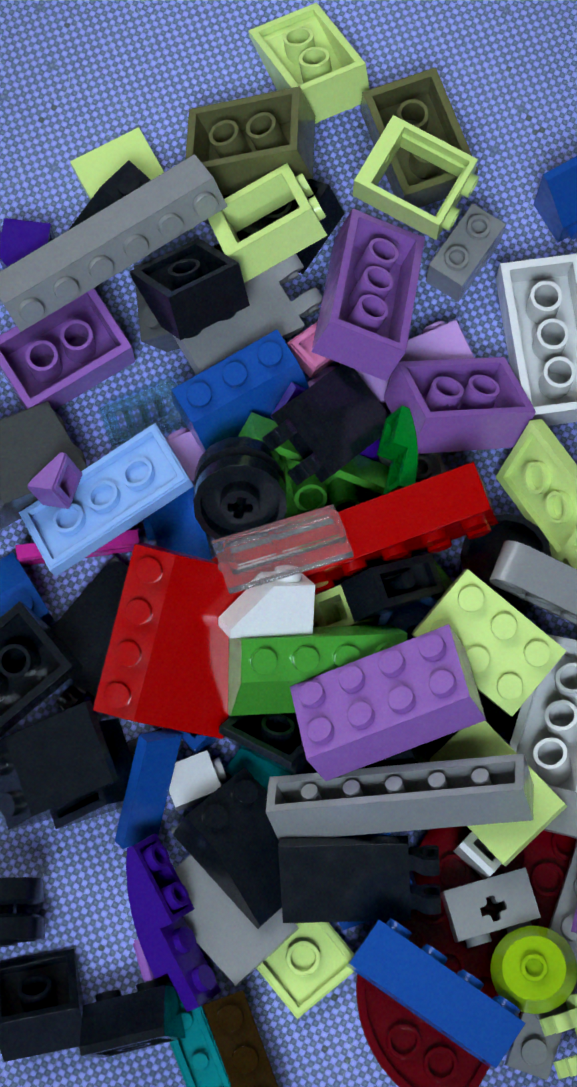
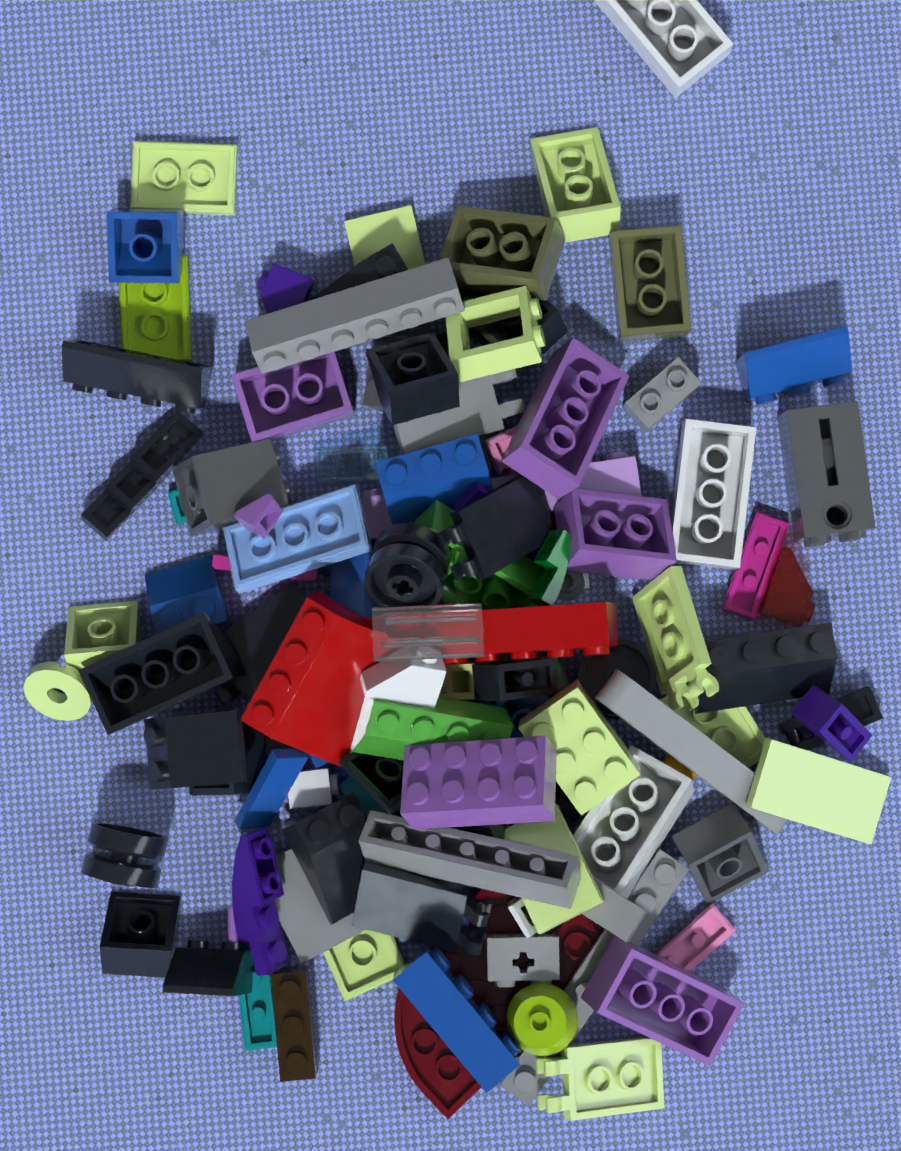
camera: 20 degrees right, 10 degrees up
(428, 147) = (630, 282): yellowish green window -> none

